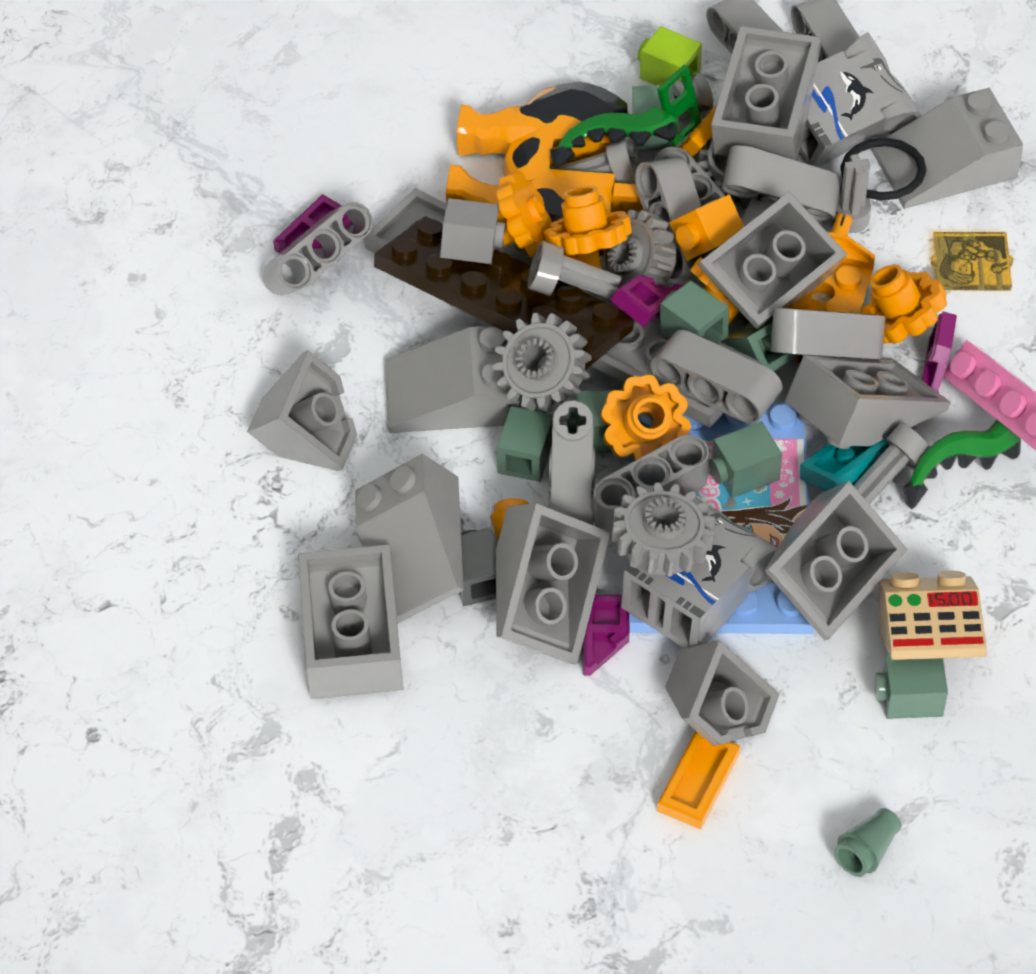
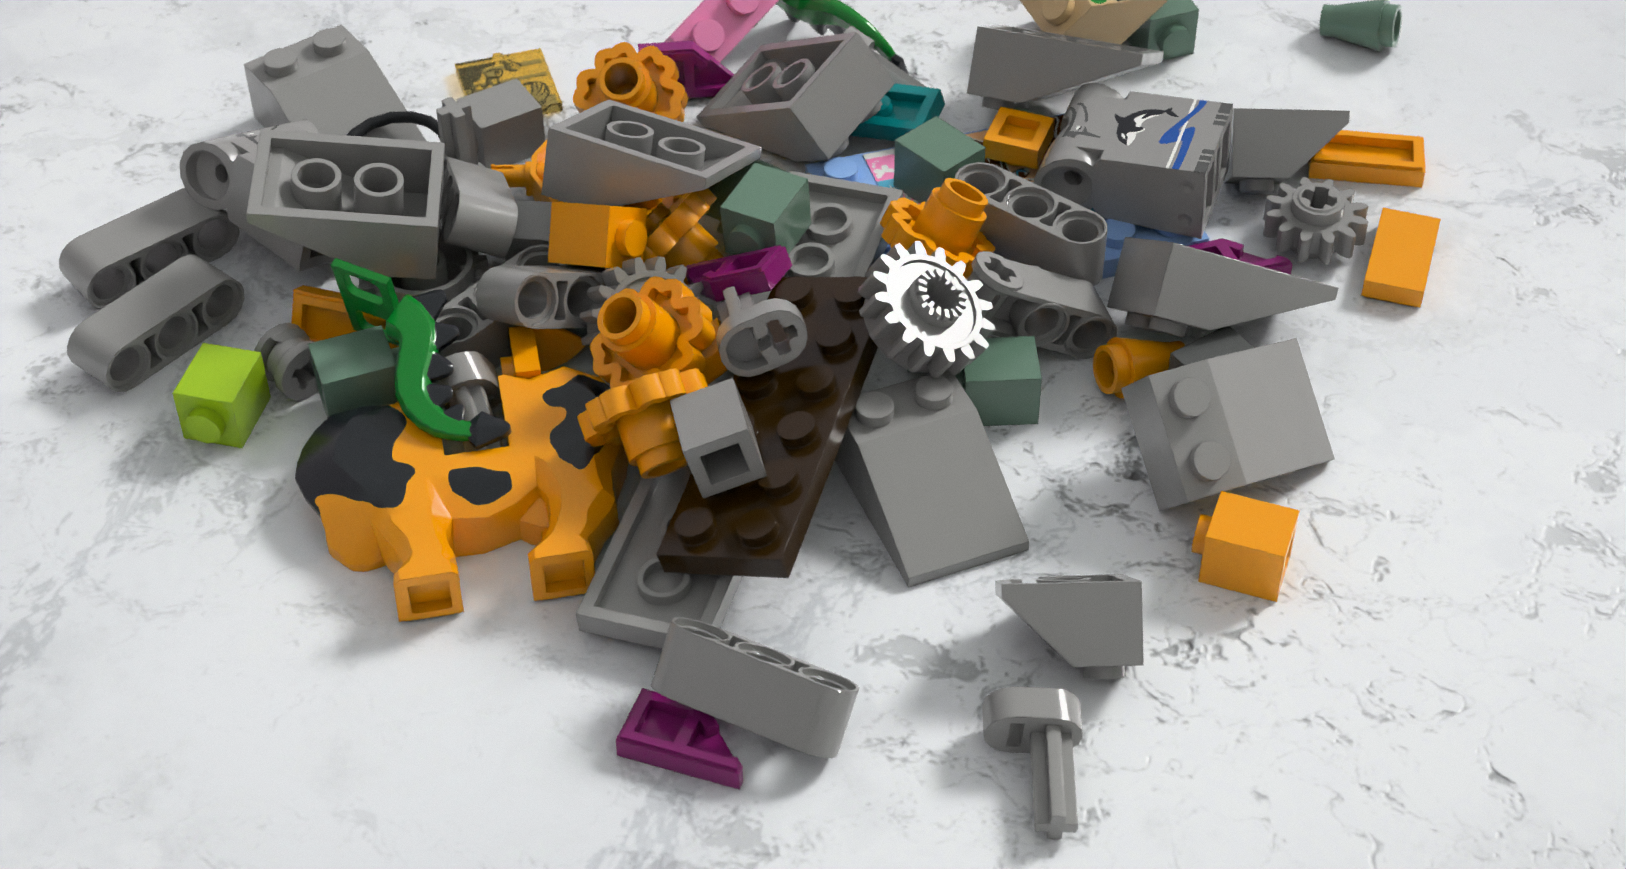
camera: 110 degrees left, 10 degrees down
(234, 383) = (1047, 727): none -> light grey piece
(321, 523) = (1245, 545): none -> light orange brick
(349, 622) = (1399, 447): light grey slope -> none
(571, 748) = (1401, 257): none -> light orange tile
(620, 694) = (1315, 220): none -> light grey gear
(663, 530) = (1144, 137): light grey gear -> none
(716, 376) = (853, 177): light grey beam -> none
(769, 519) = (1018, 137): none -> light orange plate
(827, 333) = (730, 112): light grey beam -> none
(904, 235) = (506, 123): none -> light grey brick

